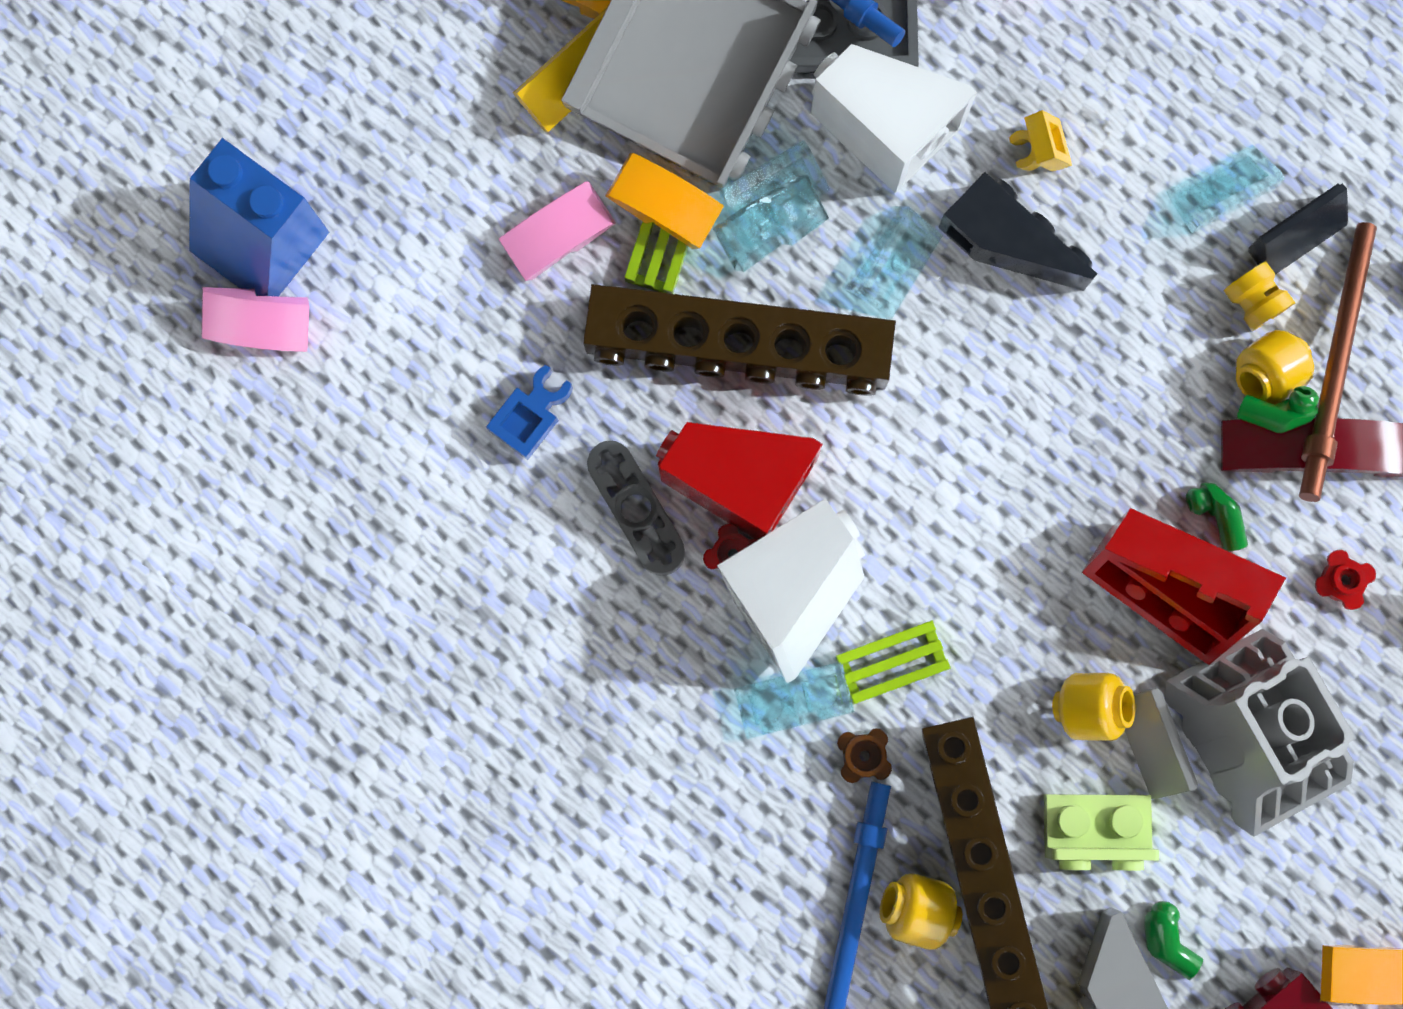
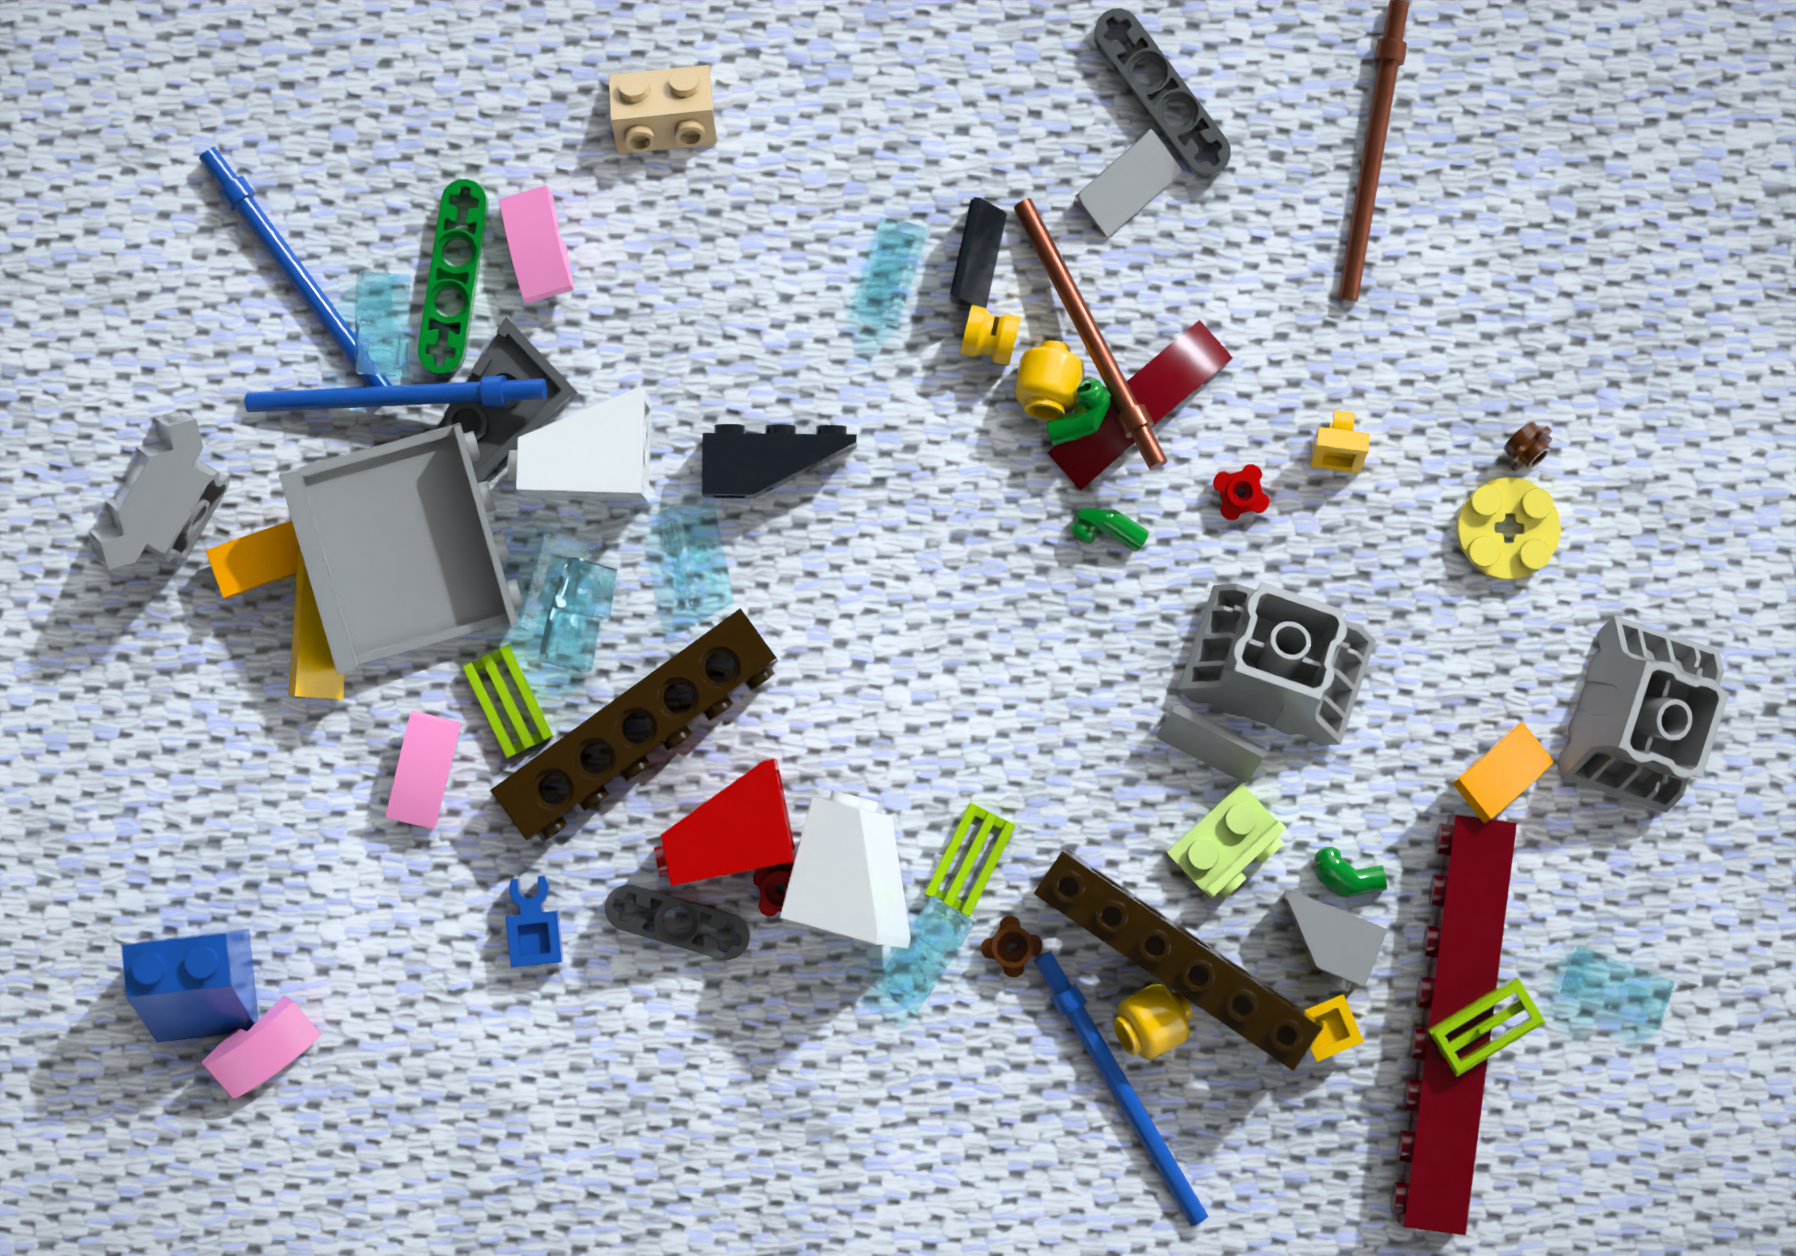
camera: 45 degrees left, 5 degrees up
(665, 200) = (483, 674): light orange slope -> none
(1046, 142) = (726, 361): yellow tile -> none
(1094, 706) = (1143, 758): yellow head -> none
(1183, 583) = (1123, 611): red wedge -> none

